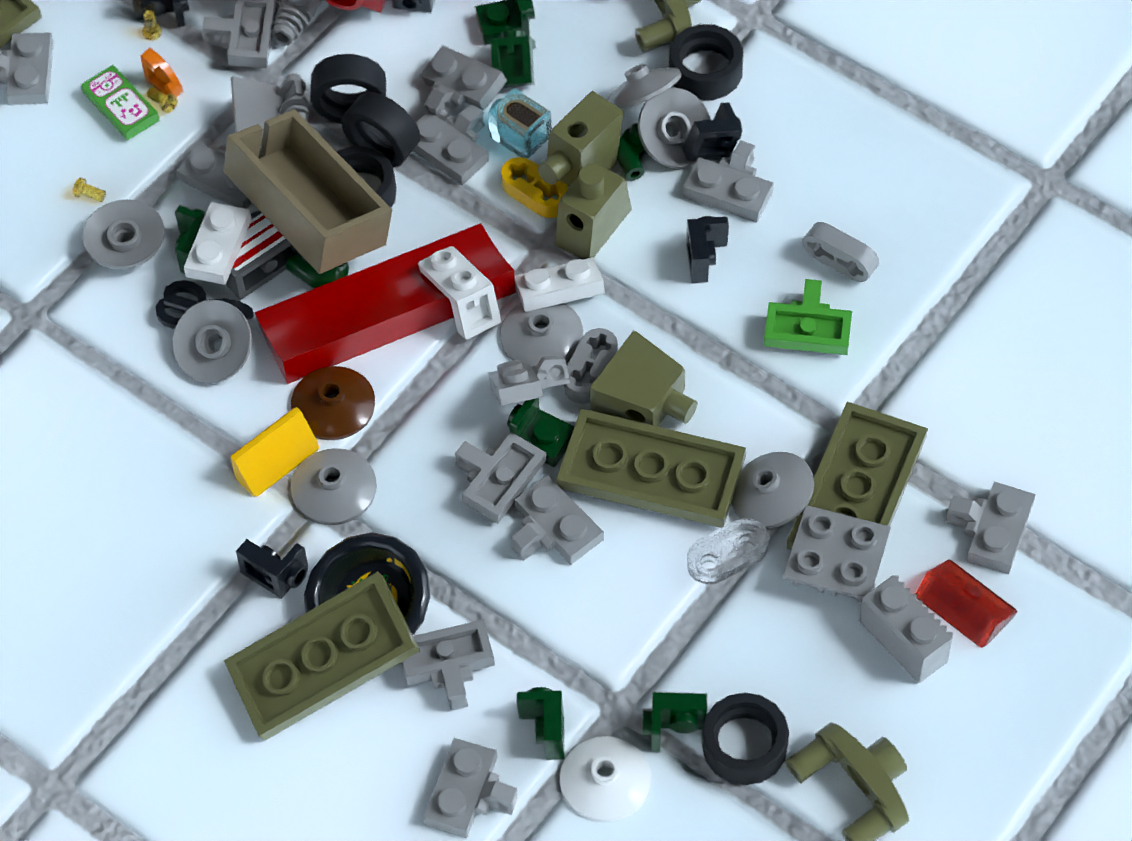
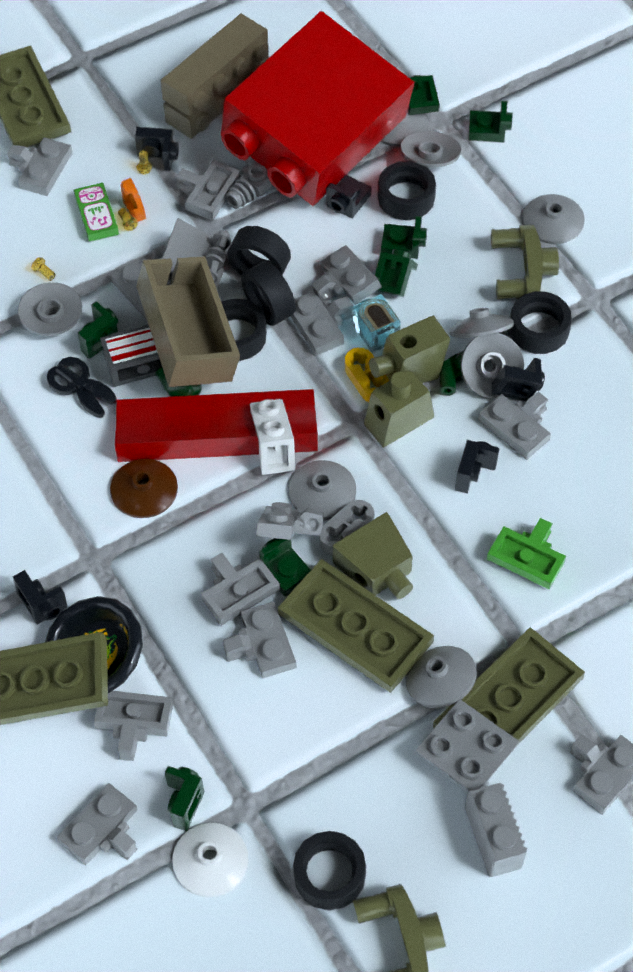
camera: 20 degrees right, 0 degrees up
(196, 336) = (64, 406): light grey dish -> none
(217, 243) = (108, 338): white plate -> none
(274, 452) = (80, 511): yellow slope -> none
(333, 501) = (114, 564): light grey dish -> none
(559, 284) = (350, 456): white plate -> none
(673, 711) = (286, 828): dark green bracket -> none
(724, 551) = (383, 711): clear plate -> none
(840, 251) = (579, 506): light grey beam -> none
(965, 602) = (555, 825): clear red slope -> none

